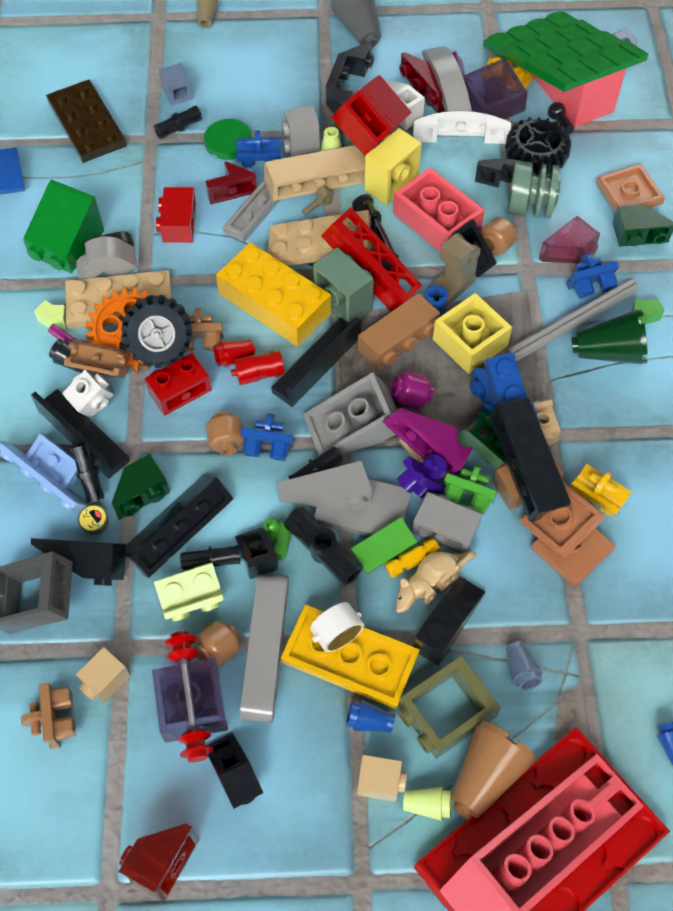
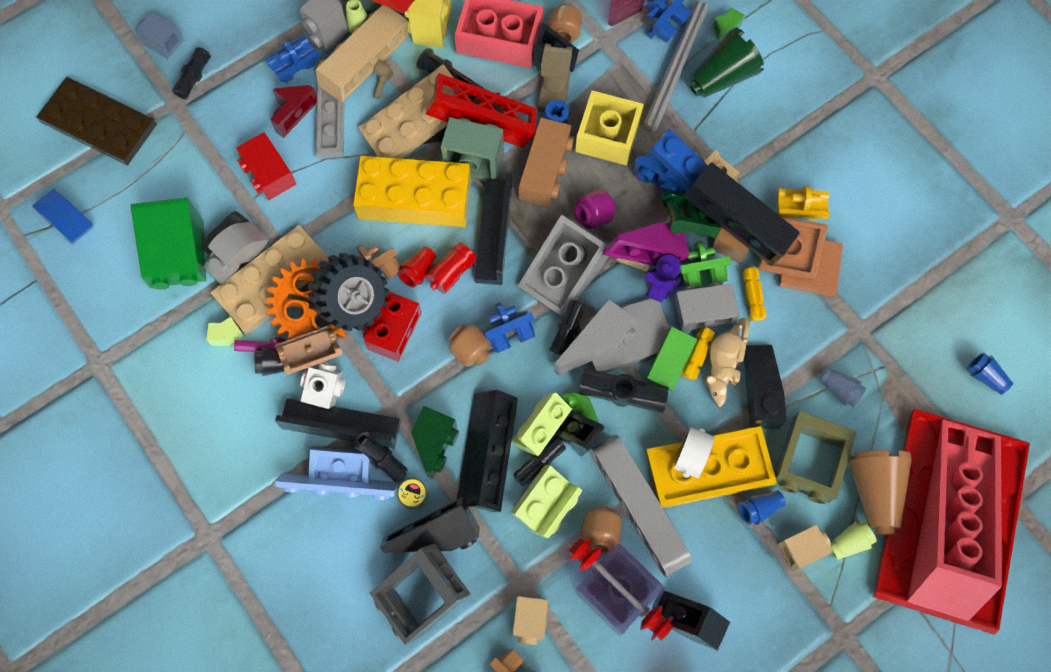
camera: 35 degrees left, 10 degrees up
(222, 137) = (247, 63): green tile -> none
(232, 526) = (542, 424): none -> yellowish green bracket
(501, 540) = (754, 294): none -> yellow axle

